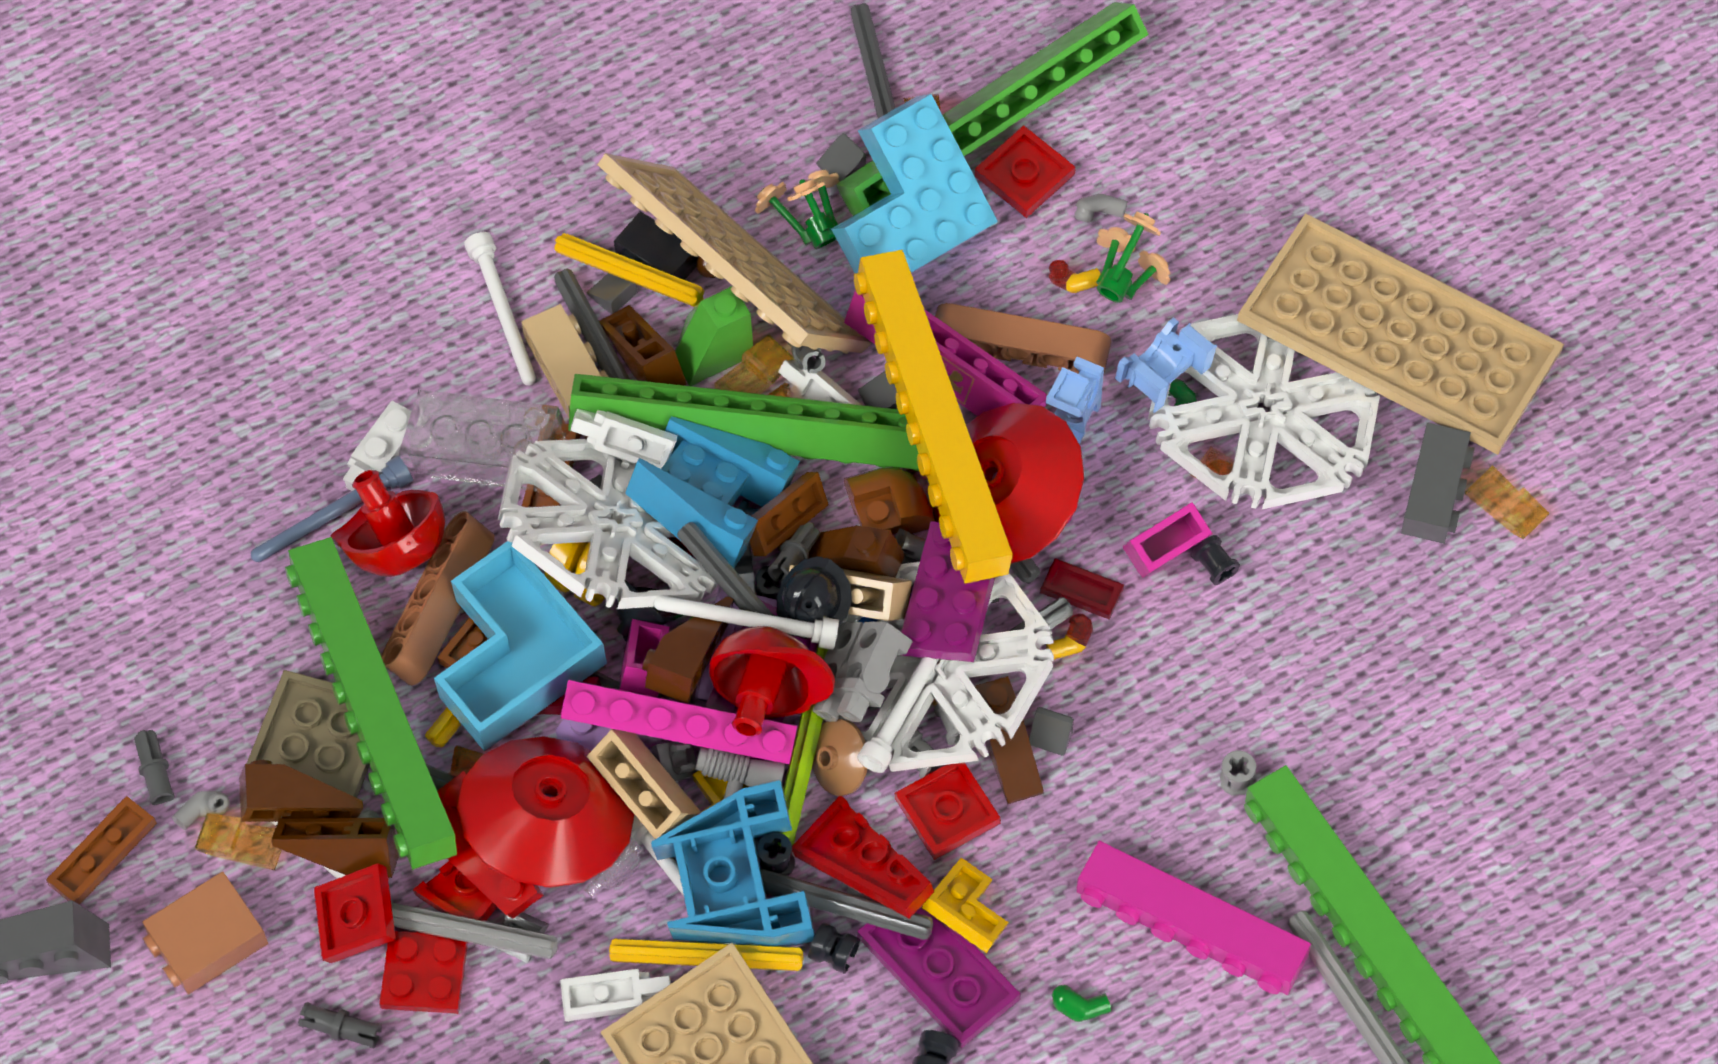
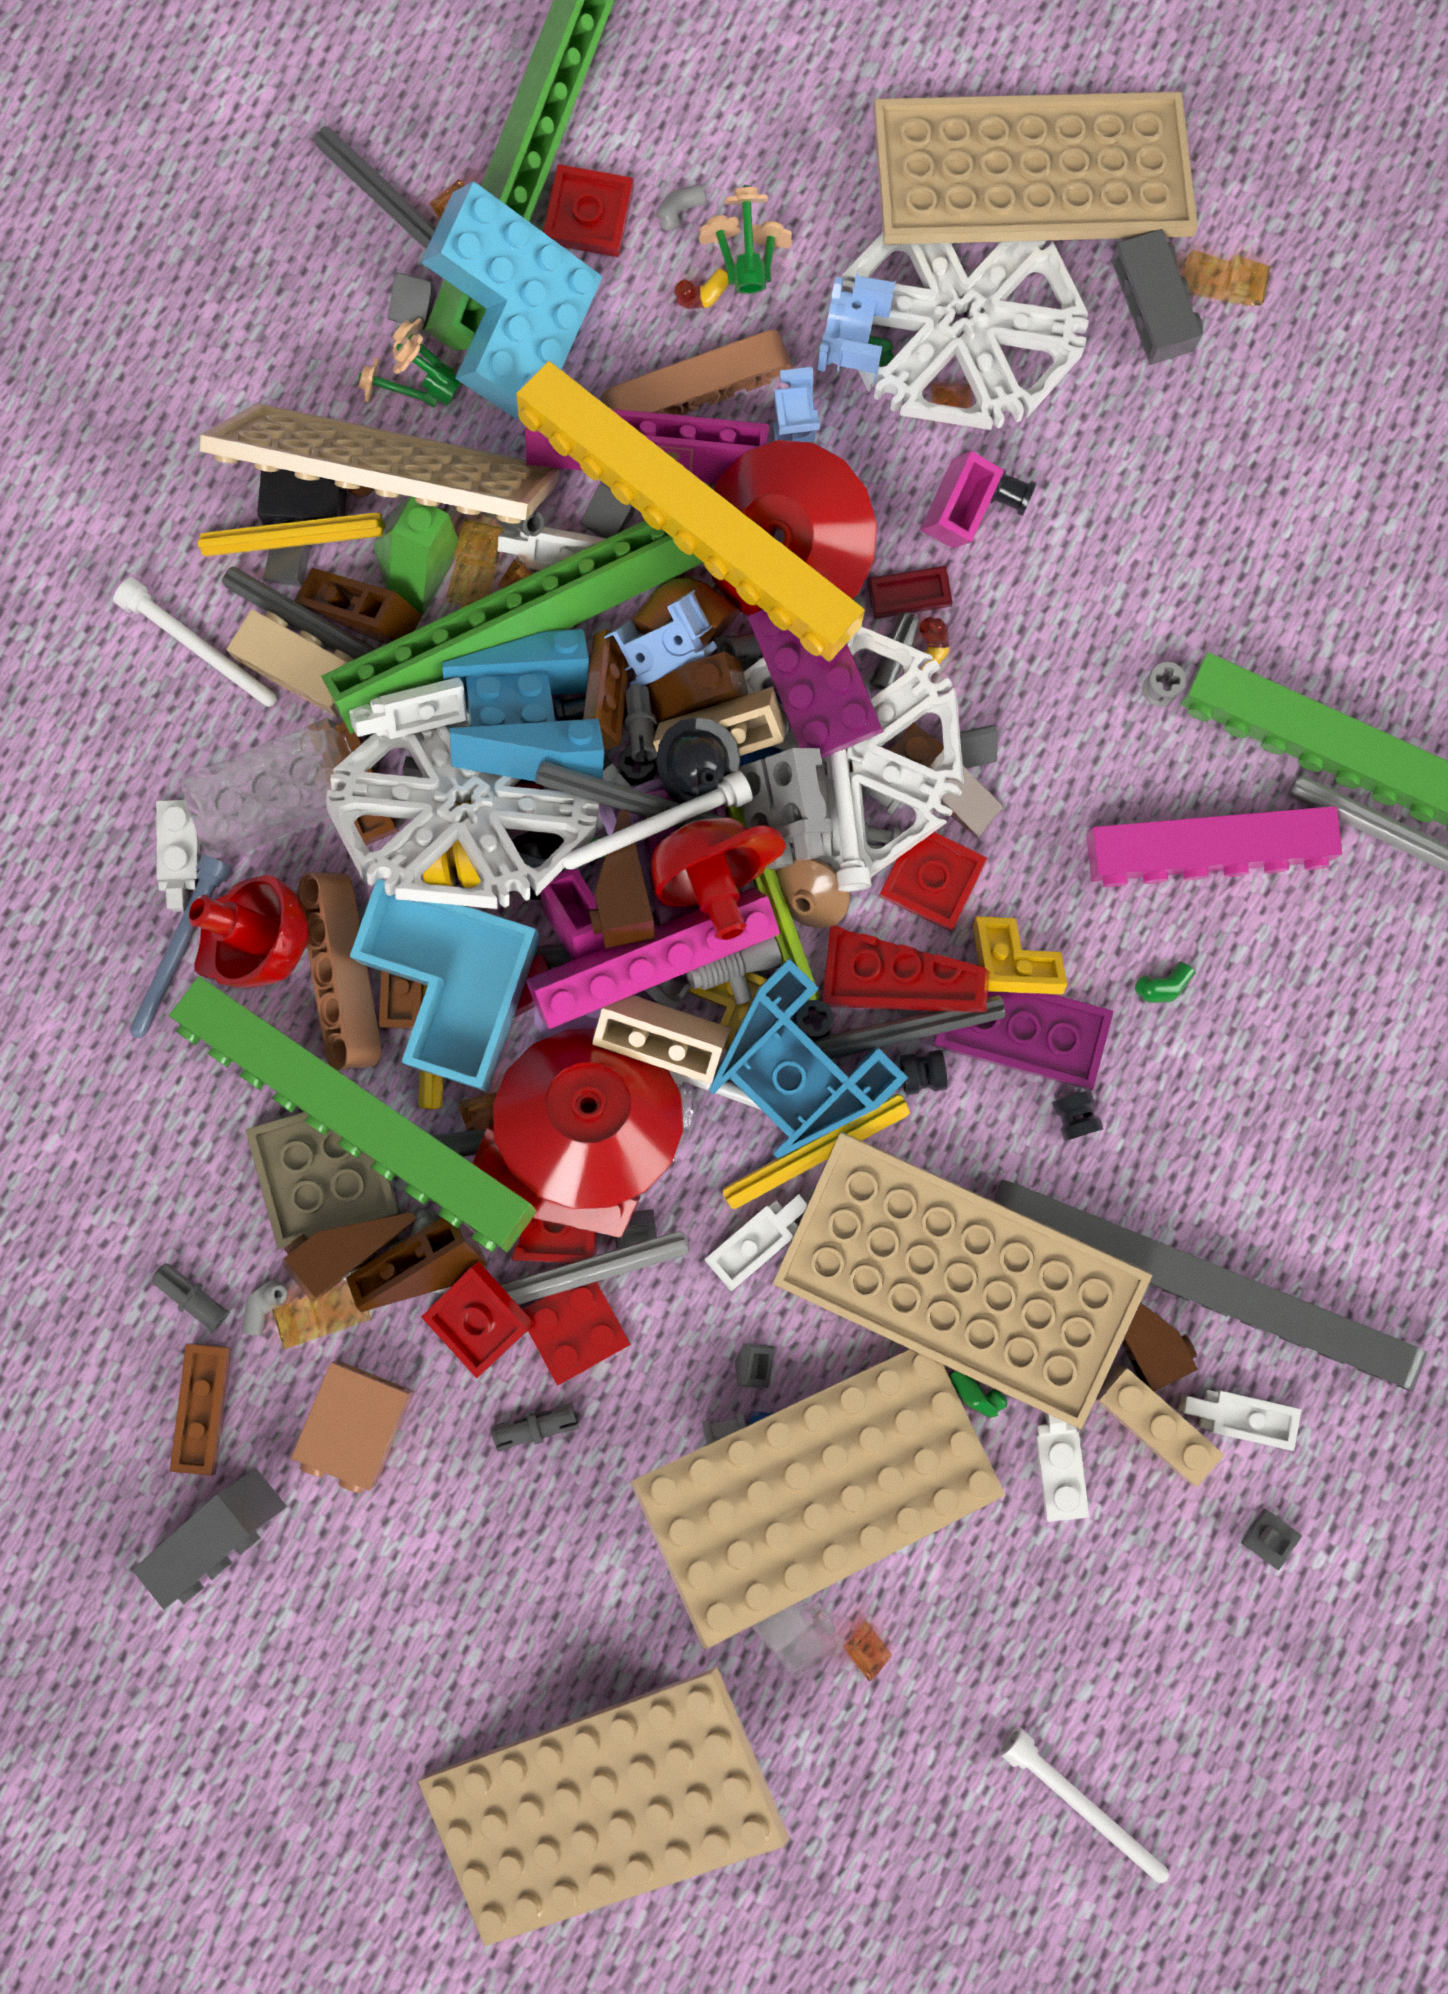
camera: 35 degrees left, 20 degrees up
(857, 506) = (669, 645): none -> light blue piece

